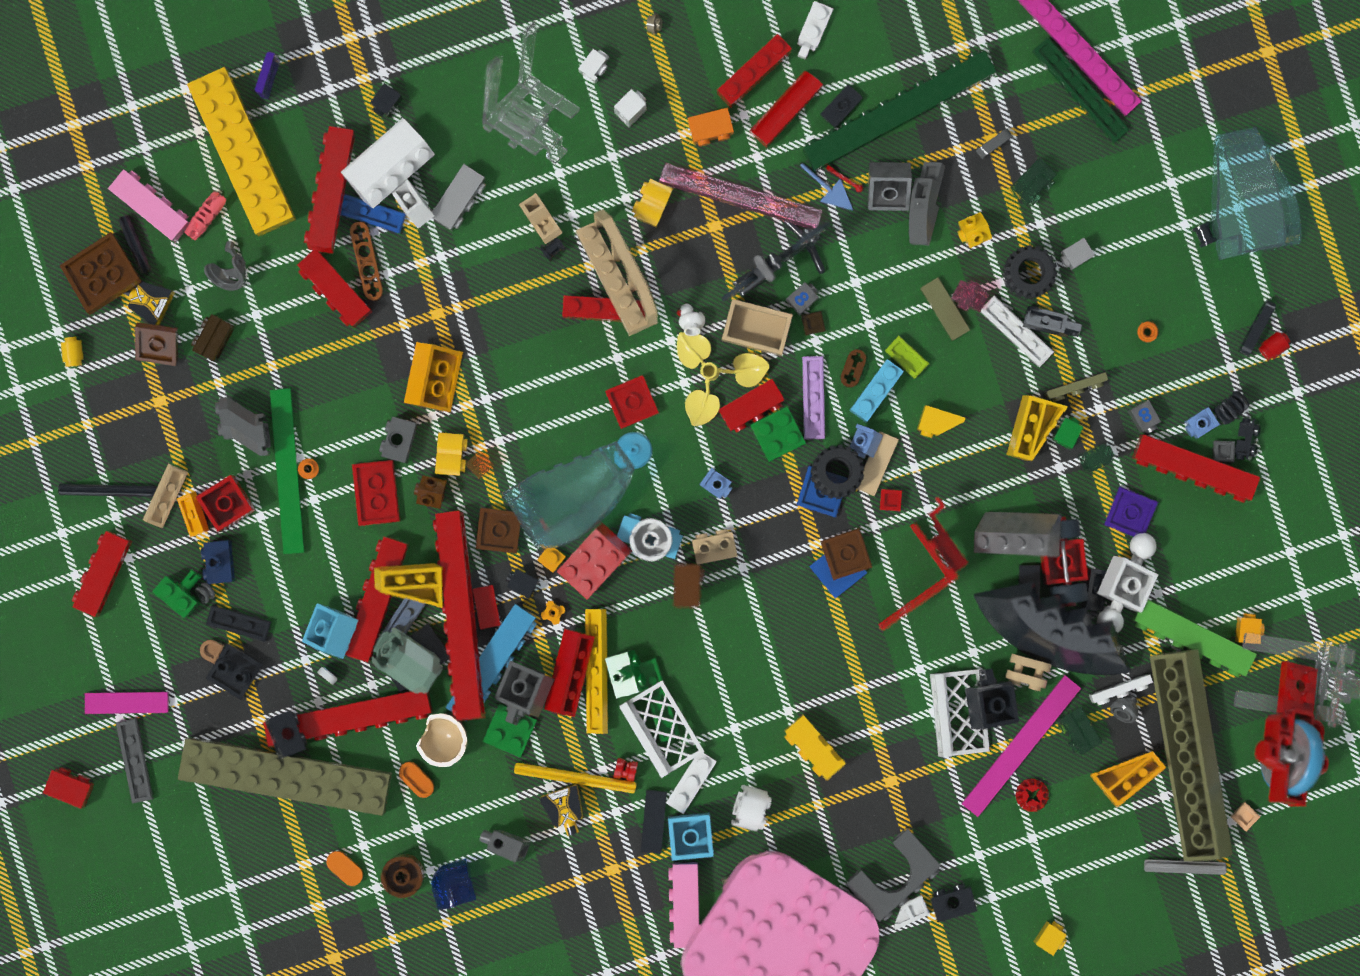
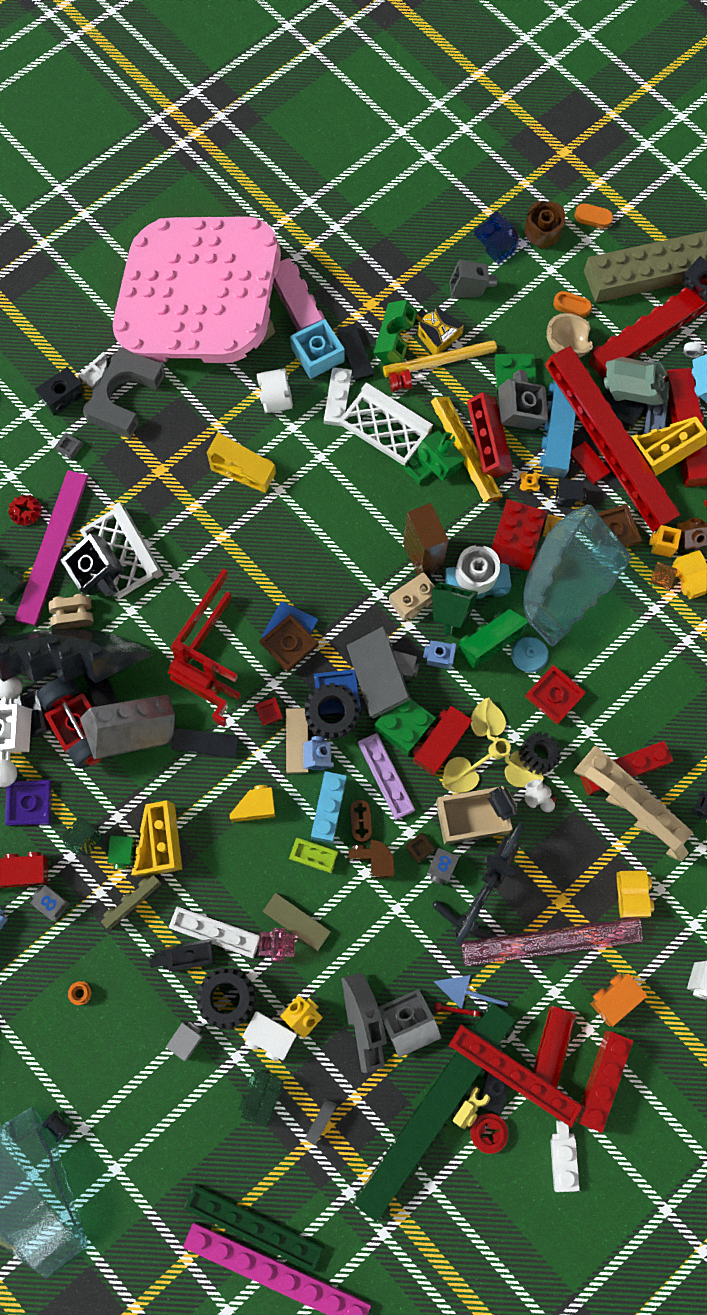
camera: 155 degrees right, 15 degrees down
(461, 496) = (665, 541): none -> light orange brick
(600, 835) = (389, 345): none -> green arch
(660, 355) = (547, 745): none -> black tyre
(664, 477) = (491, 637): none -> green slope
(686, 520) = (452, 606): none -> dark green torso
(731, 322) = (503, 803): none -> black brick
(754, 487) = (407, 665): none -> flat silver brick
(780, 489) = (378, 672): none -> dark grey tile
(825, 106) = (516, 1076): none -> red tile
(851, 330) = (380, 856): none -> reddish brown brick
(871, 68) = (499, 1137): none -> red gear
(874, 97) = (466, 1114): none -> light yellow plate
(957, 497) = (205, 743): none -> black tile
(966, 843) = (68, 446): none -> dark grey tile
(1007, 226) = (269, 1036): none -> white brick

